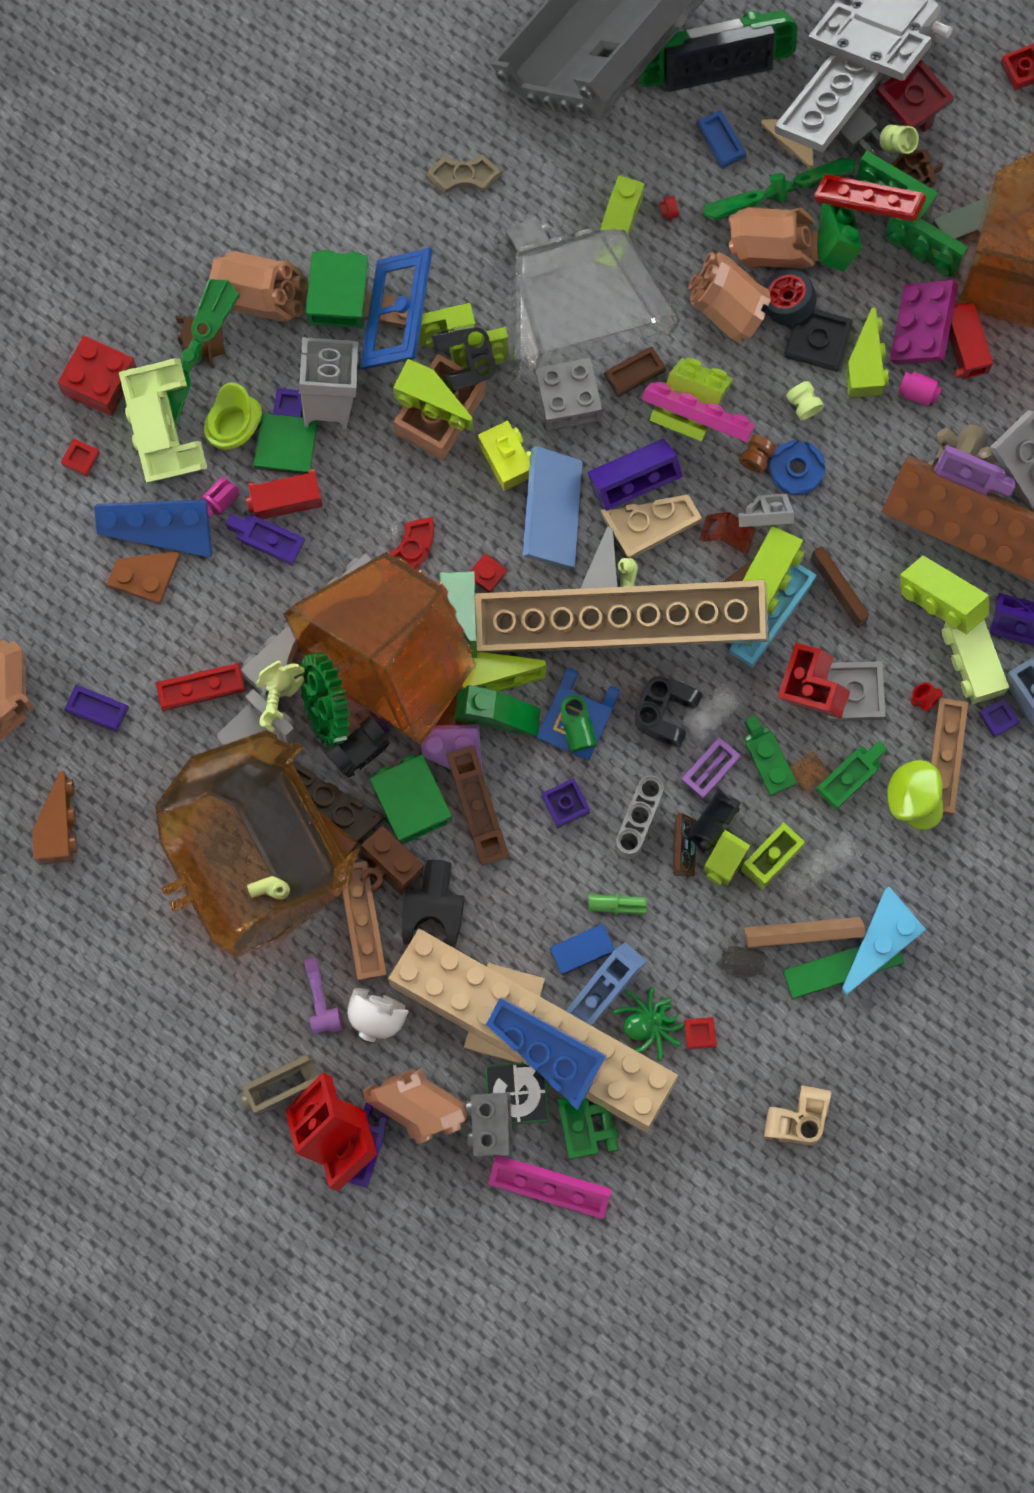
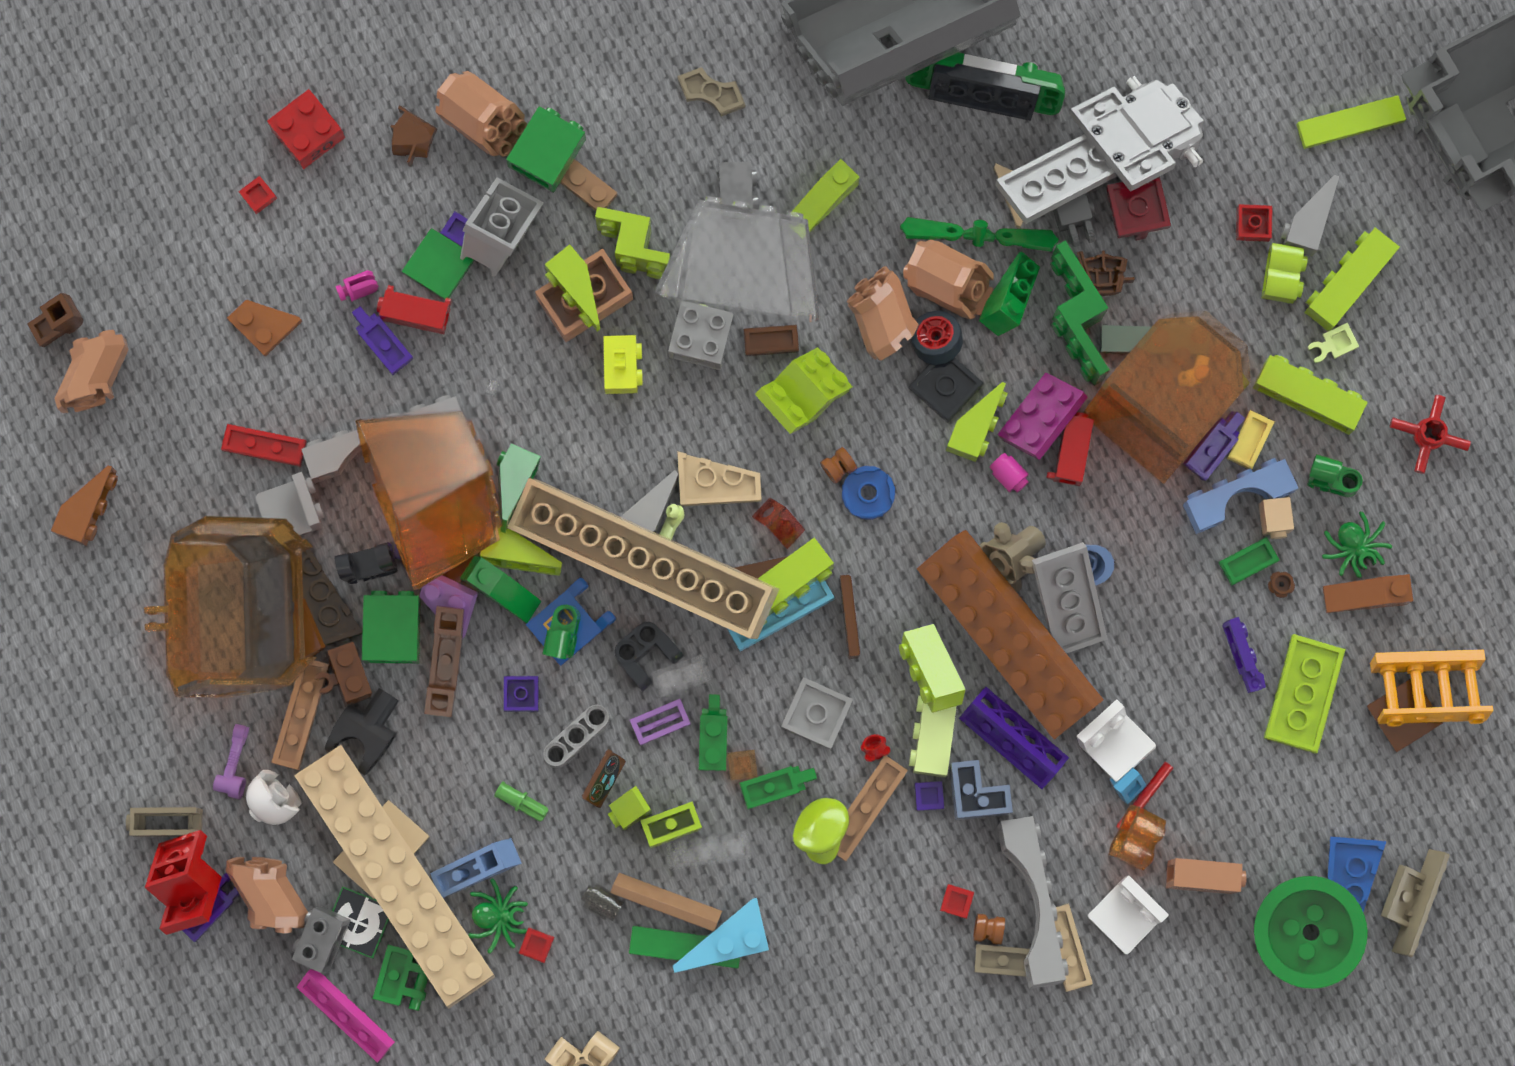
camera: 20 degrees right, 5 degrees up
(96, 708) = (167, 422): dark purple tile -> none
(153, 422) = (332, 196): yellowish green bracket -> none
(163, 524) = (298, 287): blue wing -> none
(213, 310) = (427, 120): green piece -> none
(232, 417) = (402, 221): lime piece -> none
(271, 886) = (237, 647): yellowish green arm -> none
(279, 683) = (325, 475): yellowish green piece -> none
(324, 699) = (356, 508): green gear -> none
(416, 542) = (502, 409): red tile -> none
(421, 260) = (601, 197): blue door -> none
(473, 353) = (629, 265): black piece -> none
(488, 573) = (554, 461): red plate -> none
(552, 508) = (636, 430): medium blue tile -> none
(552, 1052) = (399, 911): blue wing -> none
(582, 949) = (473, 826): blue tile -> none
(635, 474) = (722, 434): dark purple brick -> none
(669, 208) = (874, 206): red plate -> none
(706, 414) = (800, 407): dark pink plate -> none
(709, 825) = (632, 771): black hinge -> none
(721, 139) = (952, 164): blue tile -> none
(768, 510) = (818, 522): light grey wing -> none
(803, 398) = (903, 433): yellowish green wheel -> none
(806, 682) = (775, 689): red brick -> none
(870, 197) = (1047, 283): red tile -> none
(899, 139) = (1104, 240): yellowish green wheel -> none
(973, 472) = (1008, 575): medium lavender hinge -> none

